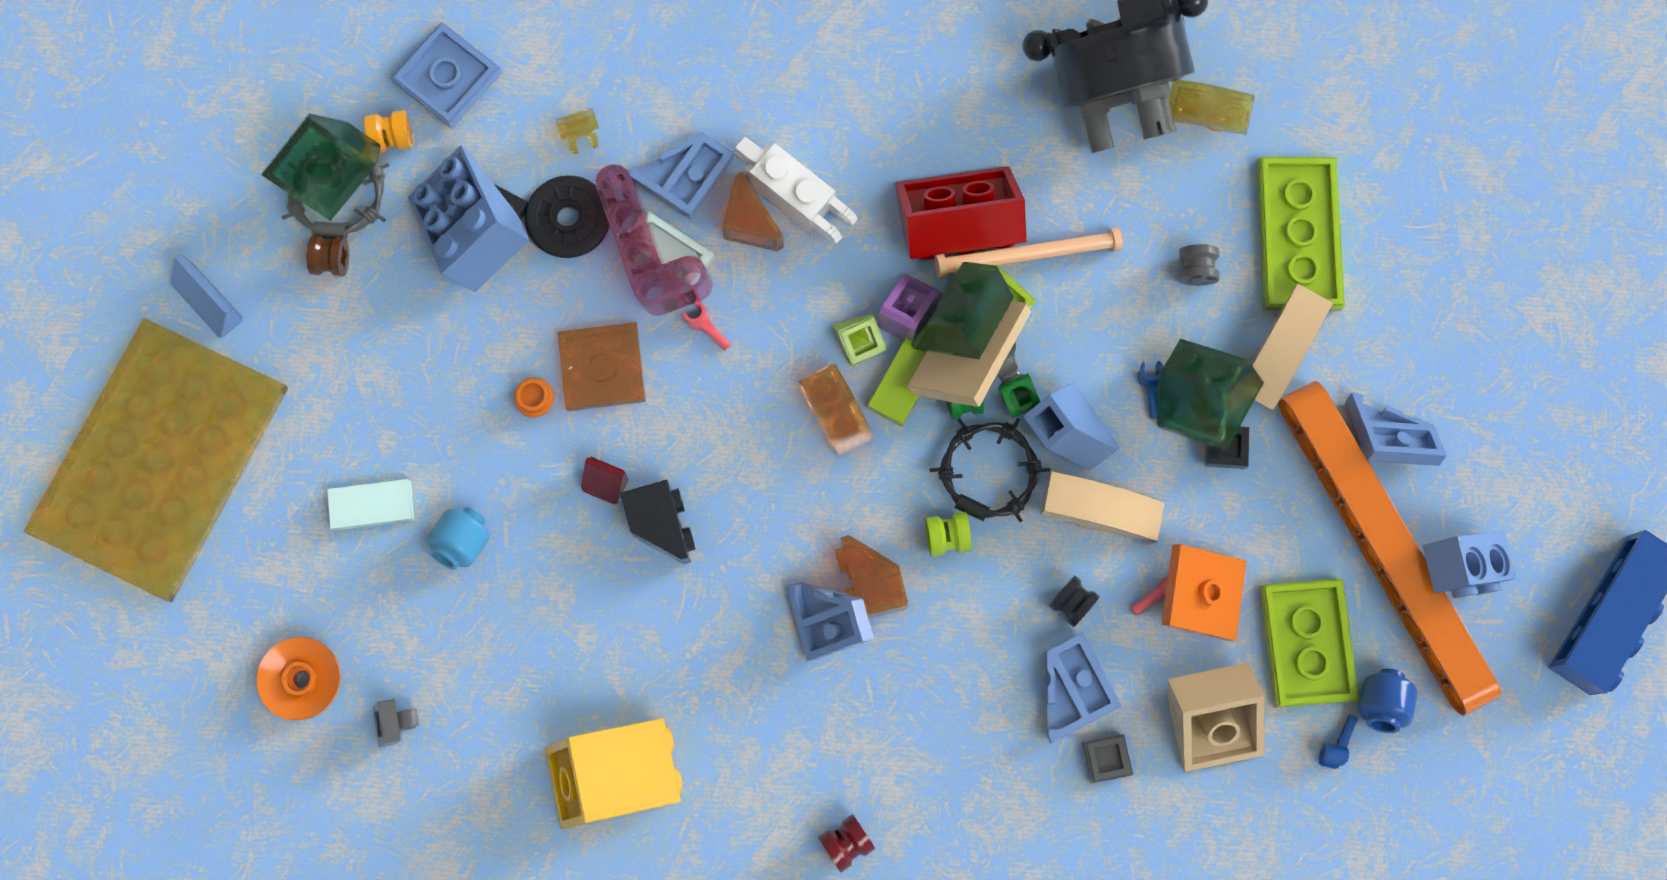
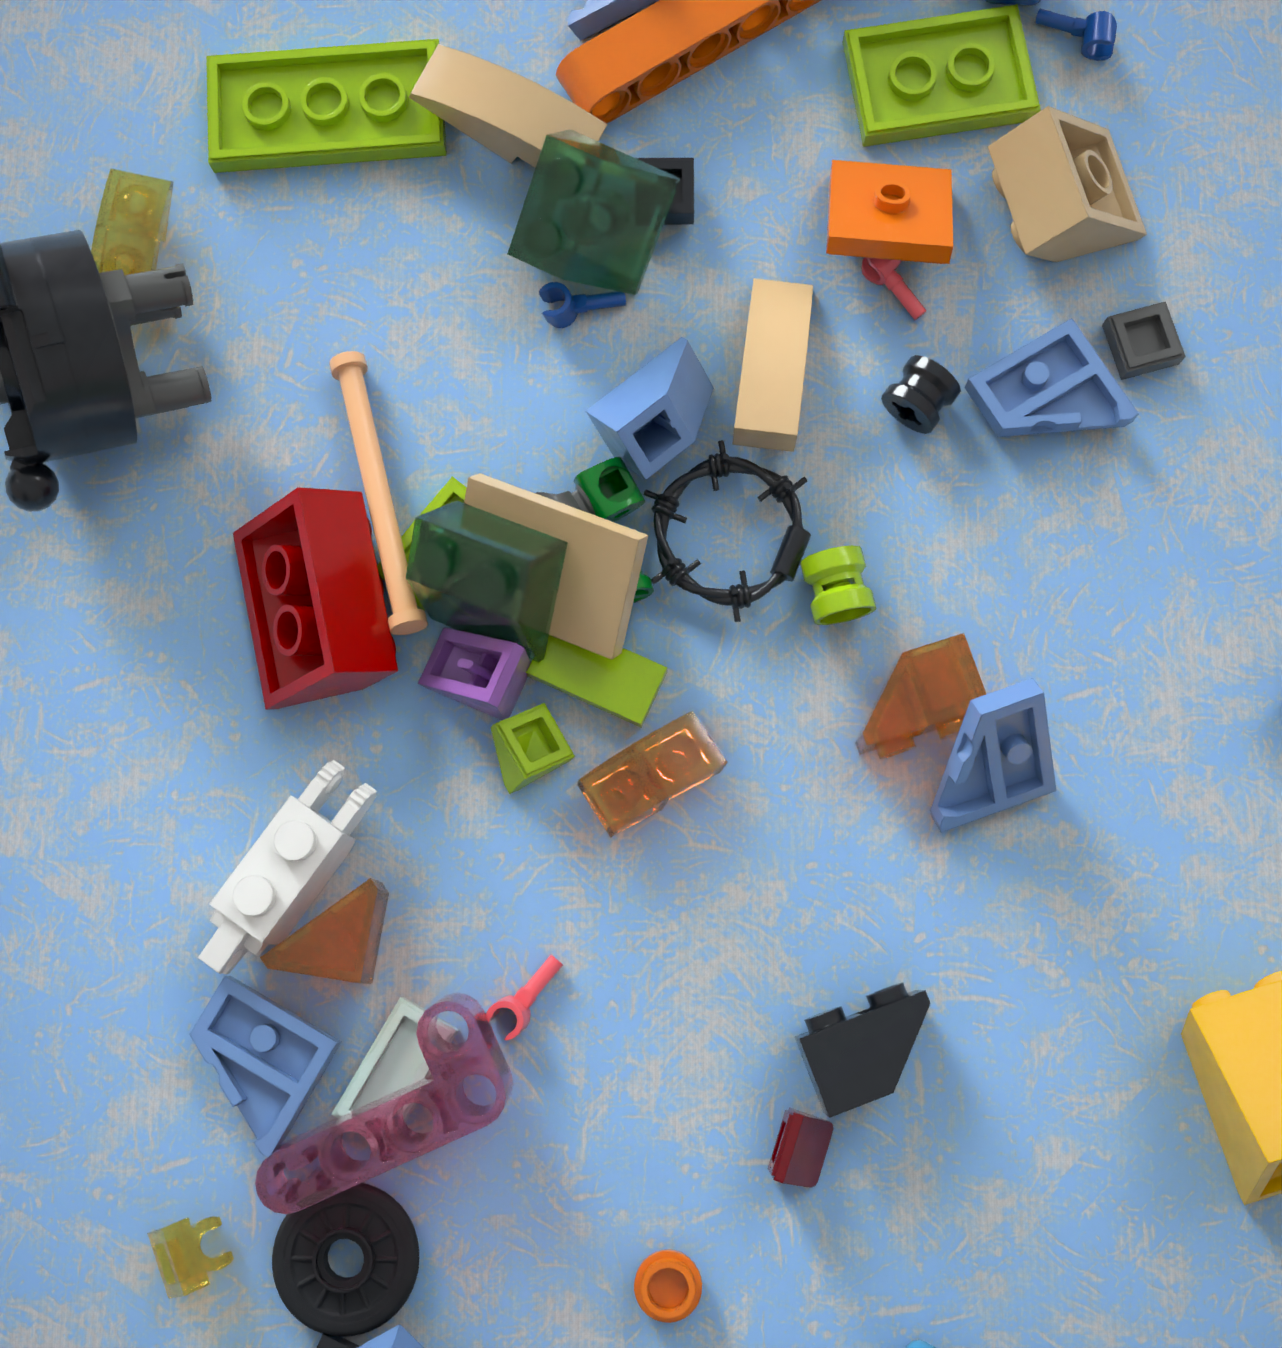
camera: 85 degrees left, 0 degrees up
(601, 366) = (604, 1172): clear orange tile -> none
(1199, 265) = (384, 239): dark grey wheel -> none

